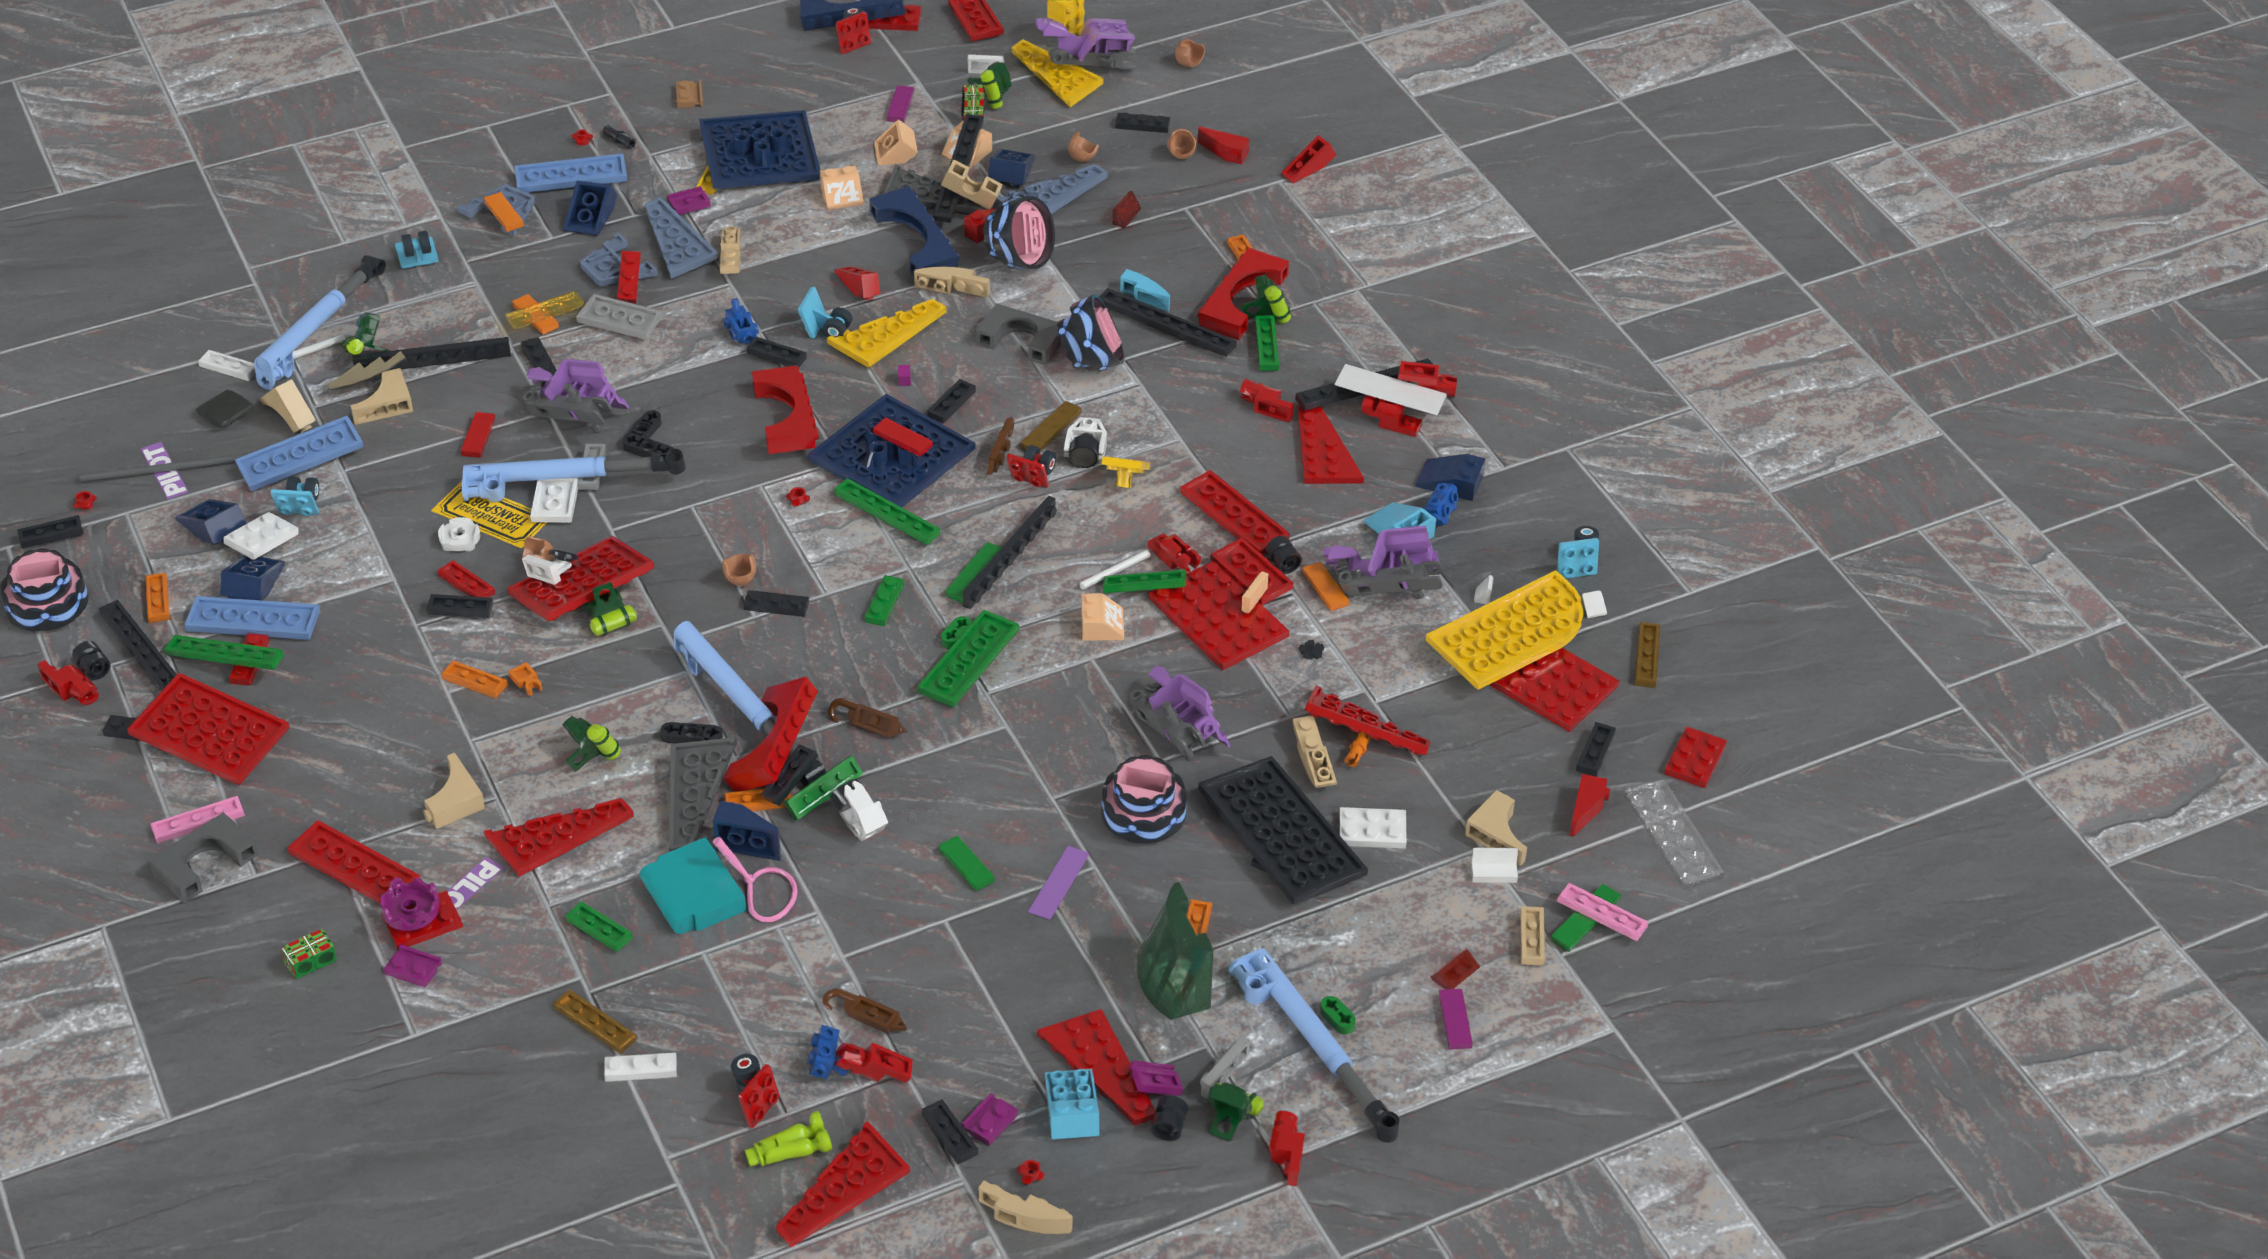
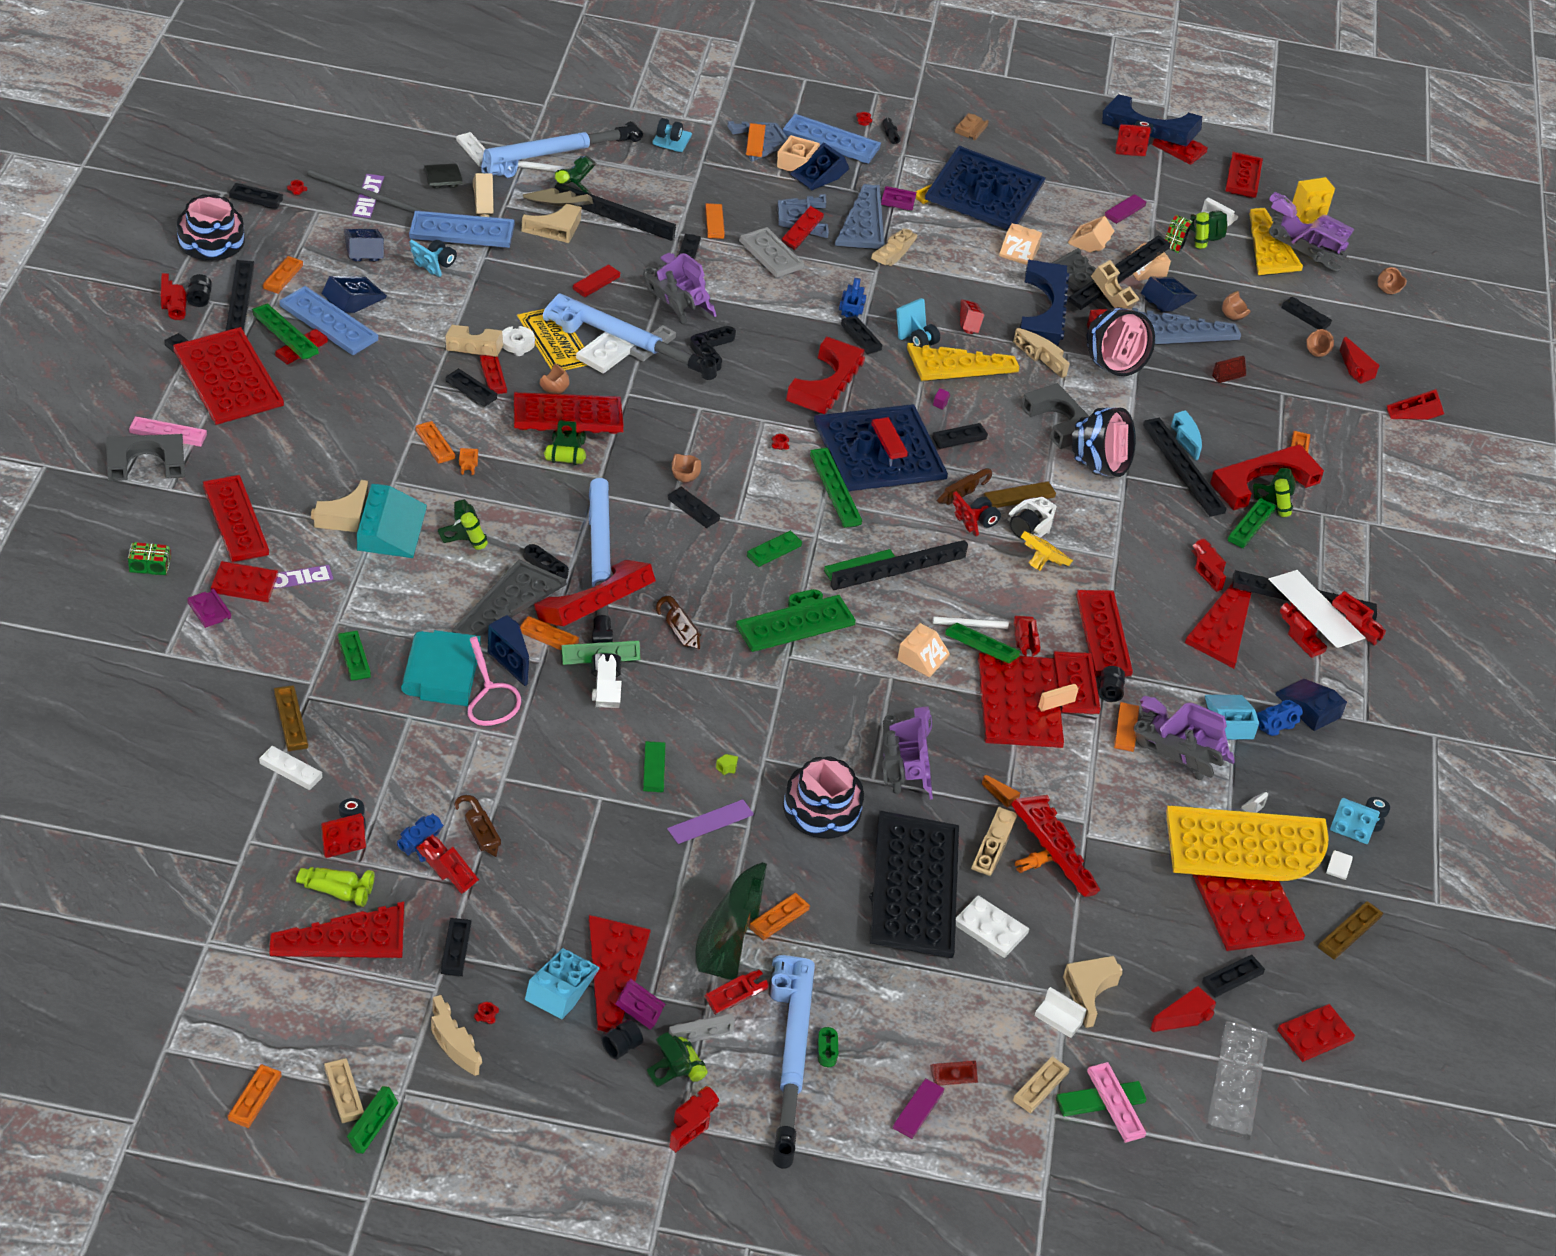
camera: 30 degrees right, 0 degrees up
(261, 535) = (385, 269): white plate -> none
(401, 896) = (240, 555): magenta plate -> none
(408, 565) = (487, 343): none -> tan arch
(510, 781) = (390, 522): none -> teal slope
(544, 310) = (721, 220): clear yellow tile -> none
(548, 570) = (549, 396): white piece -> none
(553, 835) = (383, 575): red wing -> none
(557, 205) = (795, 153): none -> light nougat slope
(790, 775) = (580, 627): black plate -> none
(990, 1119) = (494, 957): magenta plate -> none
(1028, 821) = (727, 764): none -> lime piece
(1226, 1015) = (736, 991): none -> red plate
(1275, 705) = (1002, 792): none -> orange piece
(1311, 650) = (1070, 767): black plant -> none

